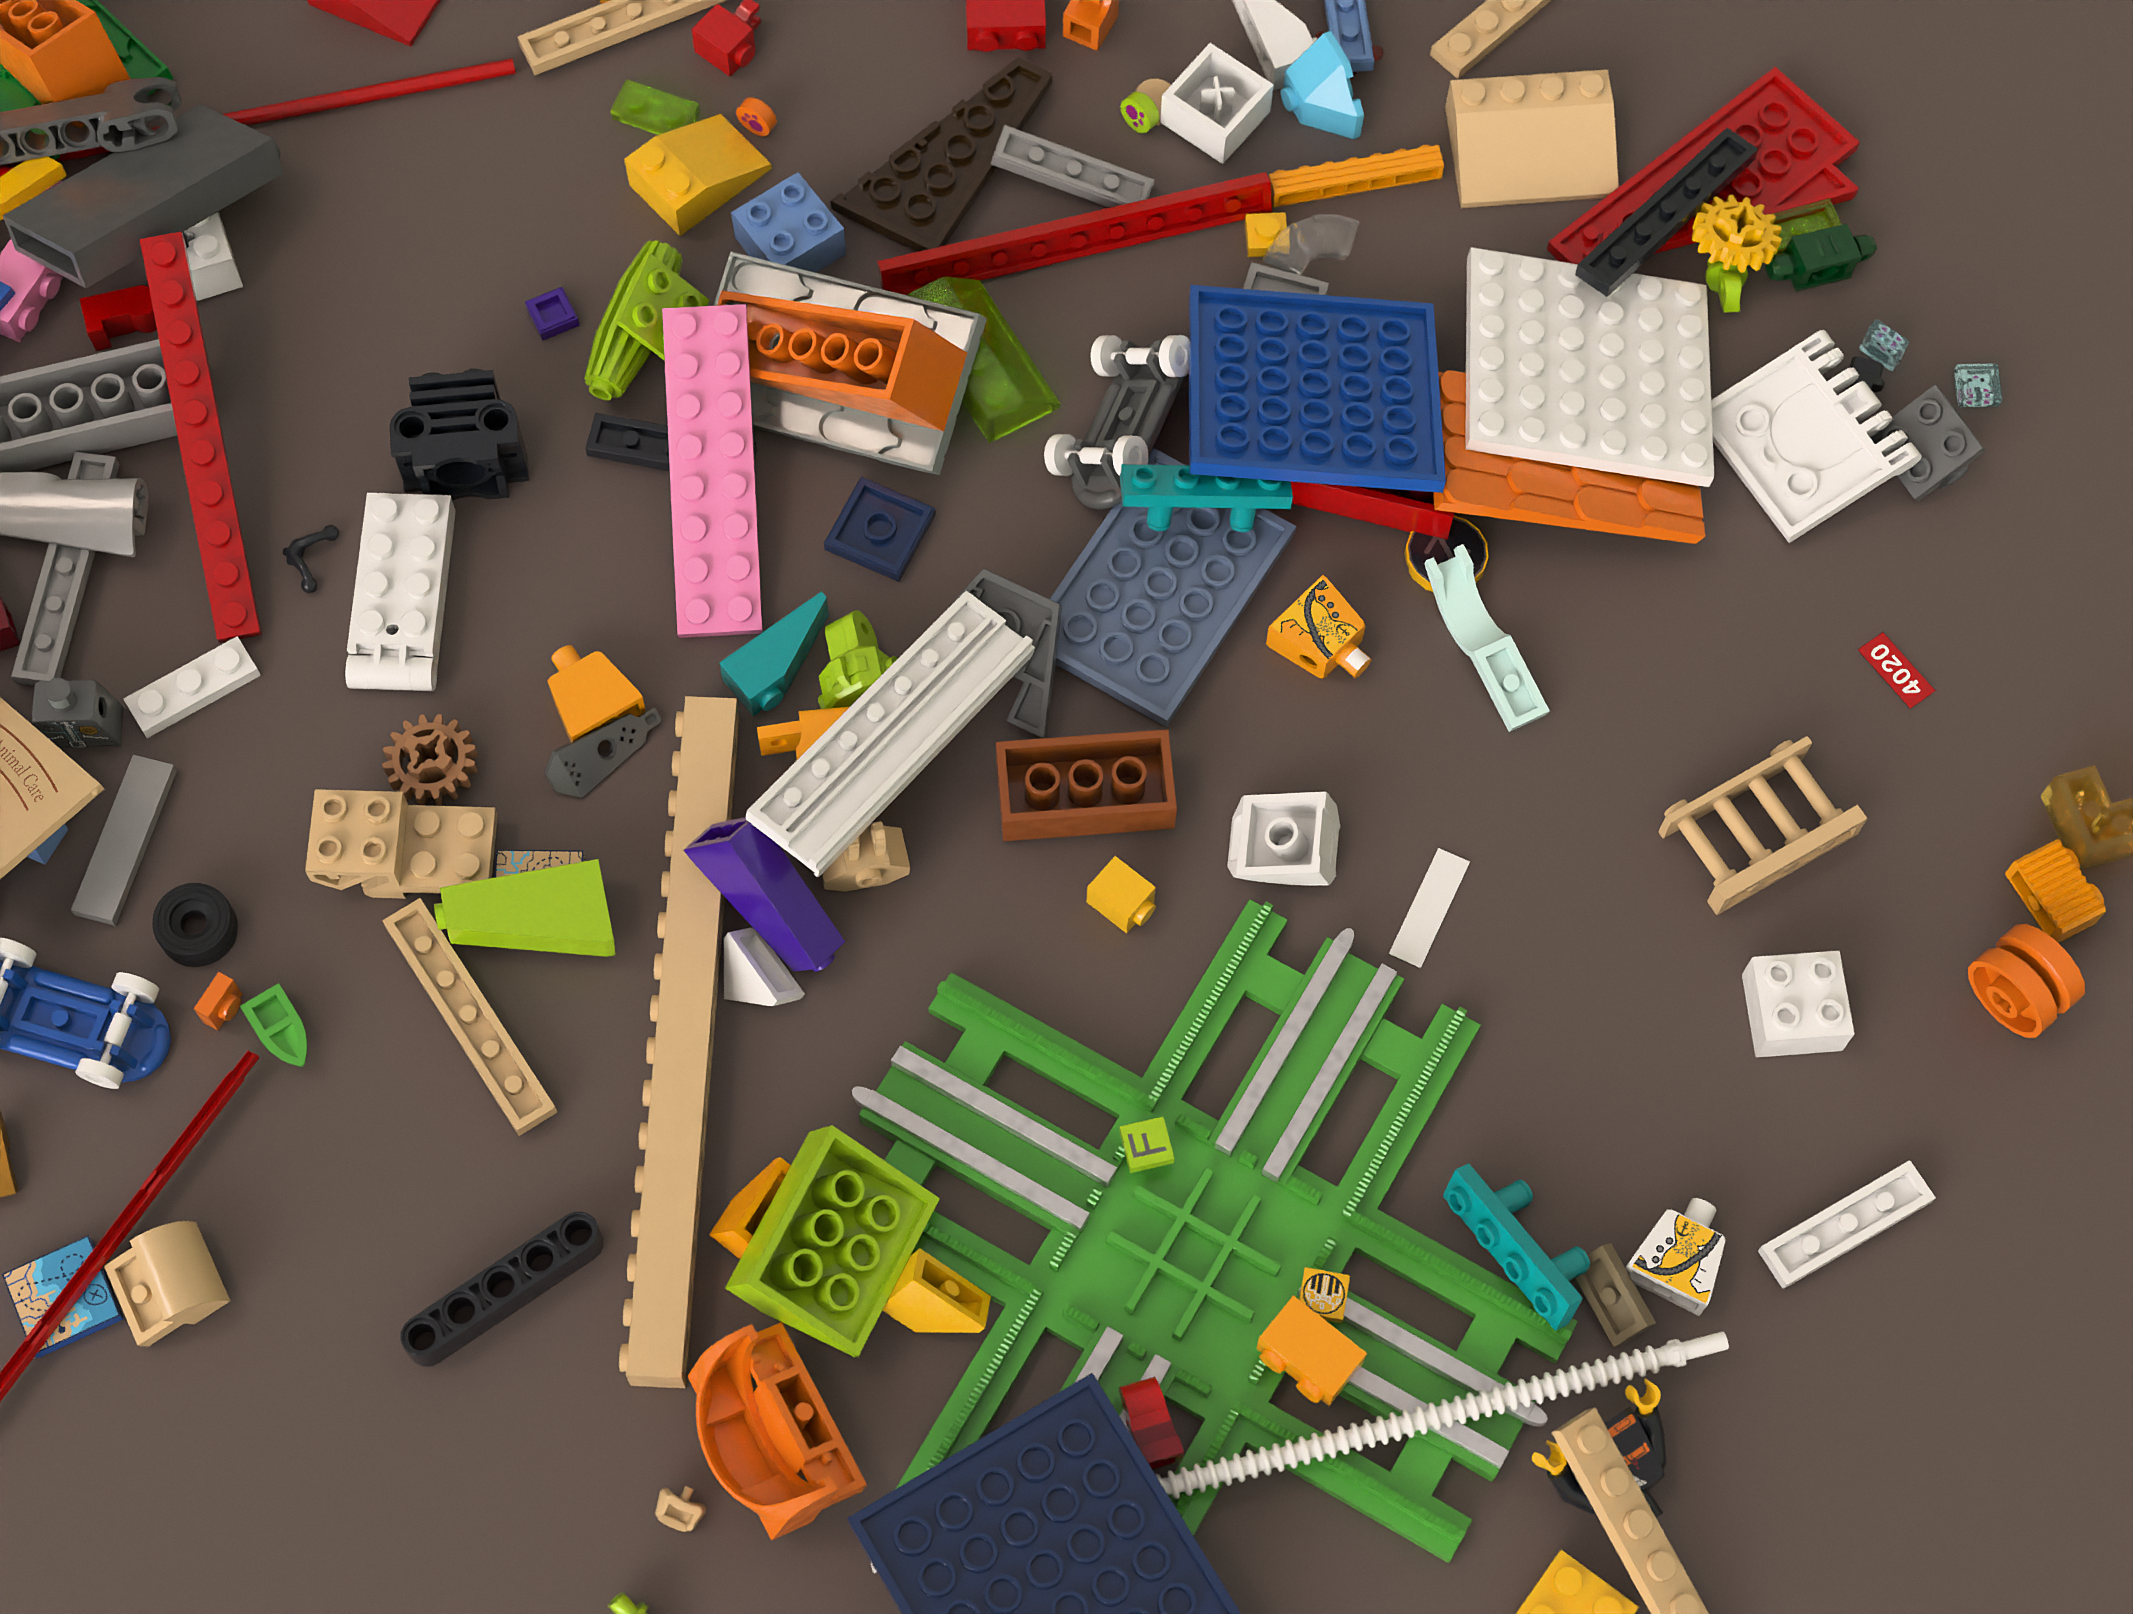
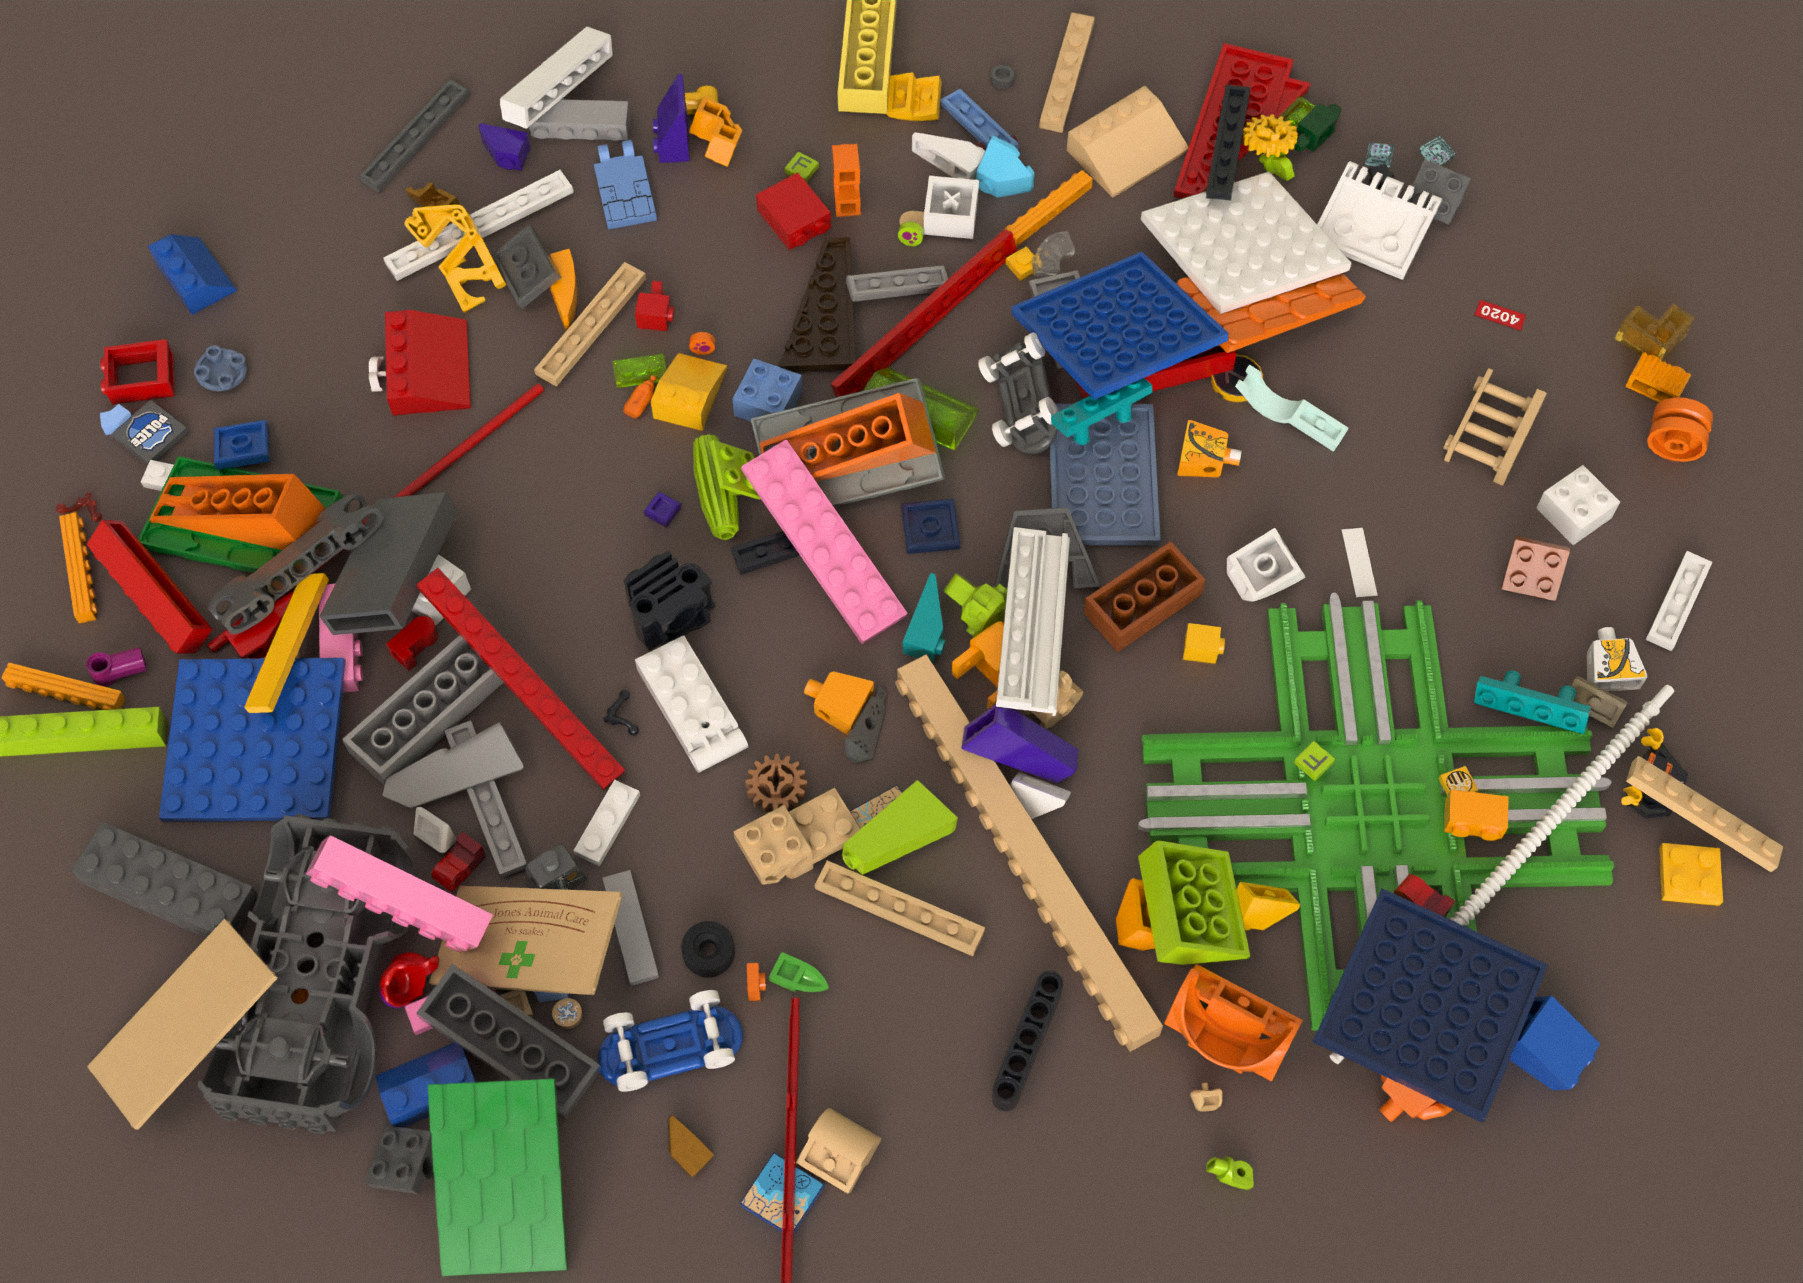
camera: 30 degrees left, 5 degrees down
(612, 154) = (639, 398): none -> orange piece
(1662, 1058) = (1535, 568): none -> plate

